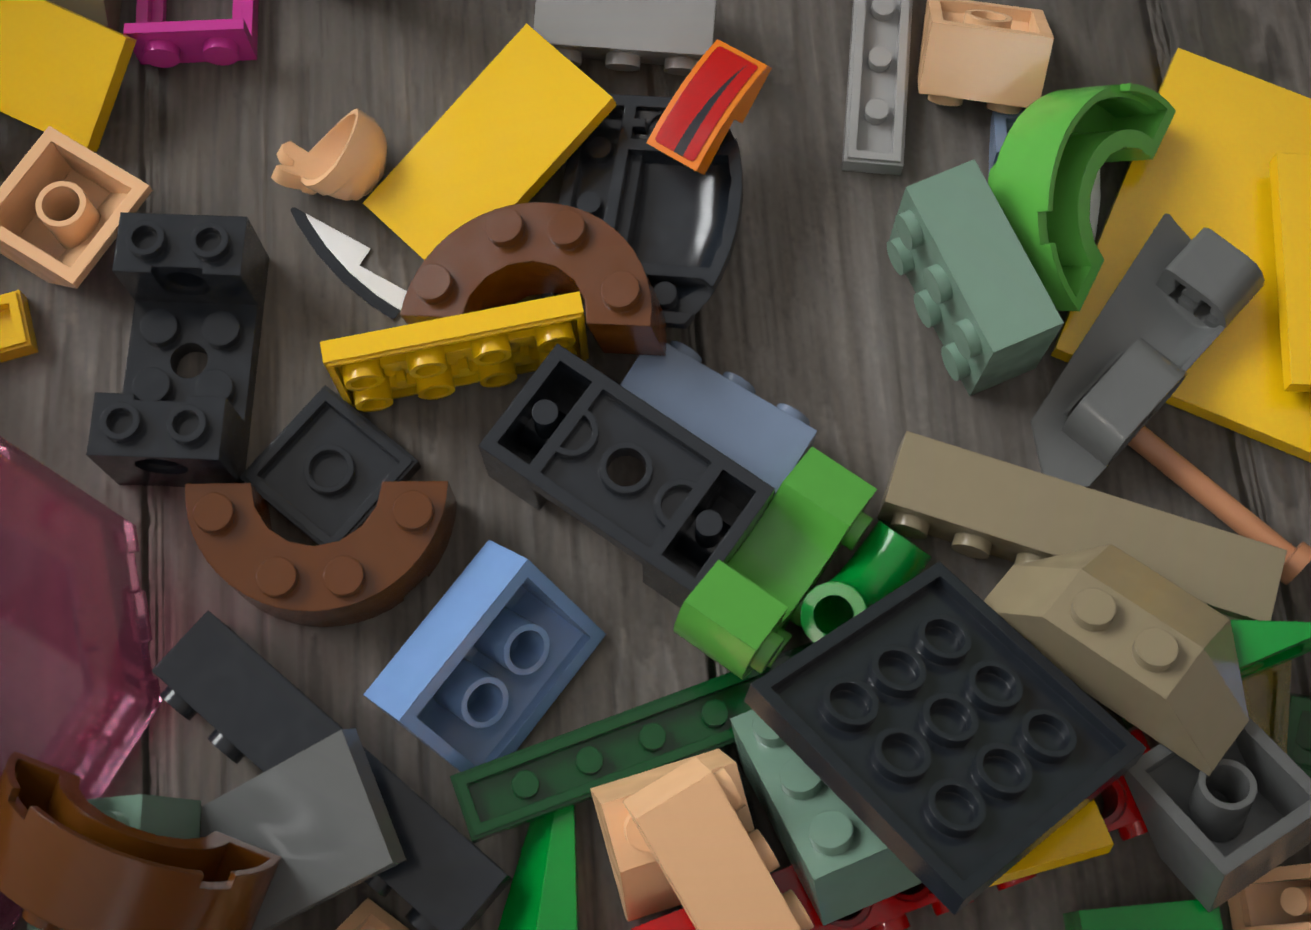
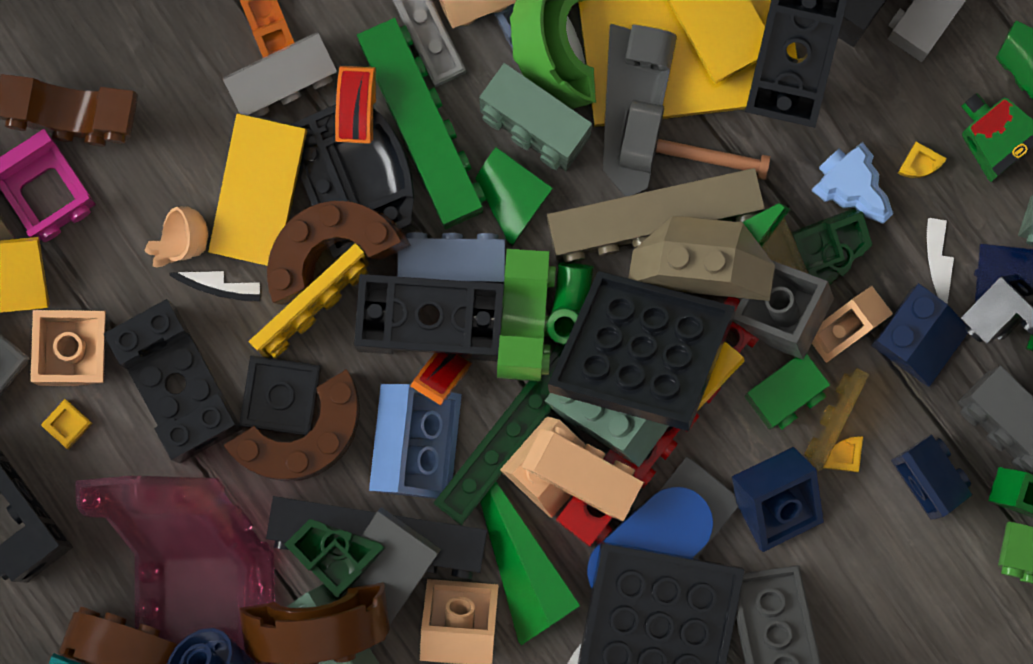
camera: 30 degrees left, 10 degrees up
(229, 759) = (333, 554): none -> dark green slope
(587, 579) = (440, 376): none -> slope
(789, 204) = (420, 123): none -> green brick
(868, 375) = (511, 193): none -> green slope

